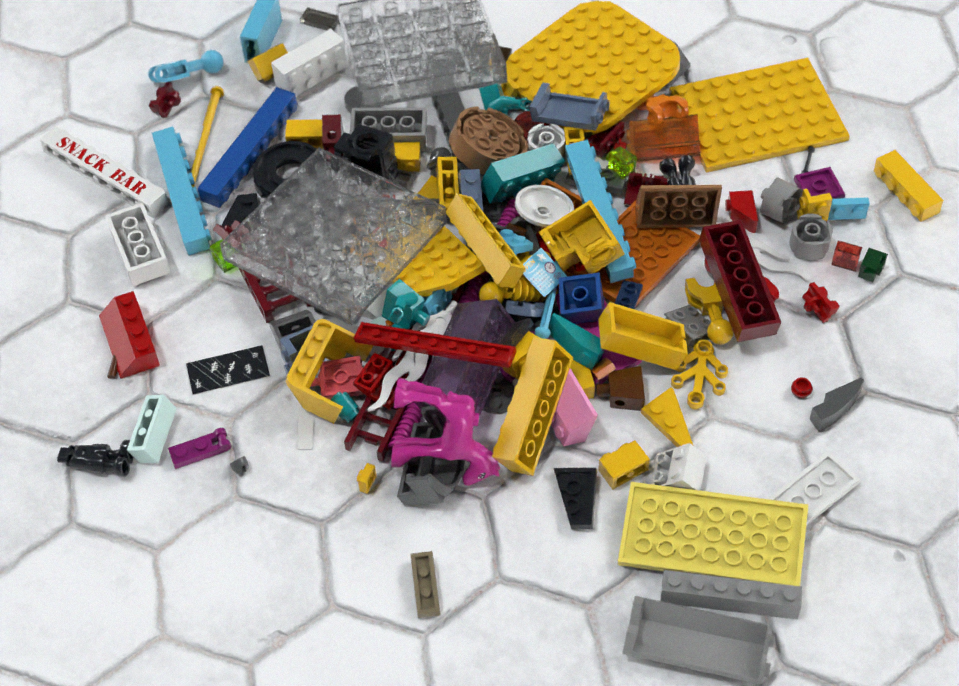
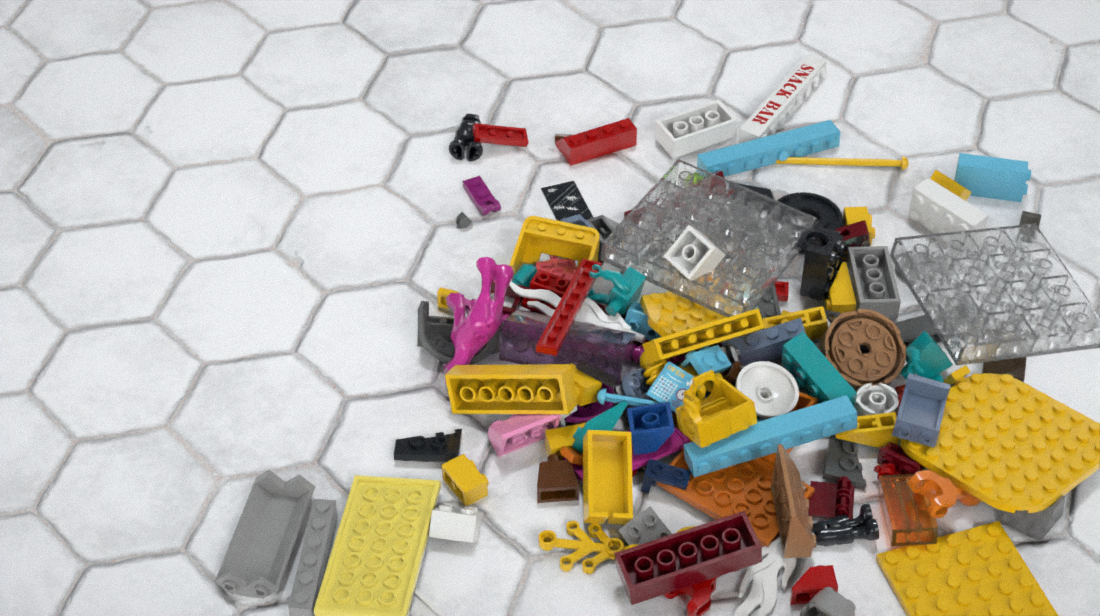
camera: 85 degrees right, 10 degrees down
(108, 423) = (500, 135): none -> red plate
(151, 429) = (494, 160): light aqua brick -> none
(166, 99) = (882, 129): dark red hips -> none
(210, 61) = (919, 128): medium azure piece -> none
(247, 147) = (840, 190): blue brick -> none
(380, 234) = (694, 254): none -> white slope
(425, 584) = (339, 344): dark tan plate -> none
(621, 162) = (859, 468): clear neon green brick -> none
(667, 417) = (526, 518): yellow wing -> none

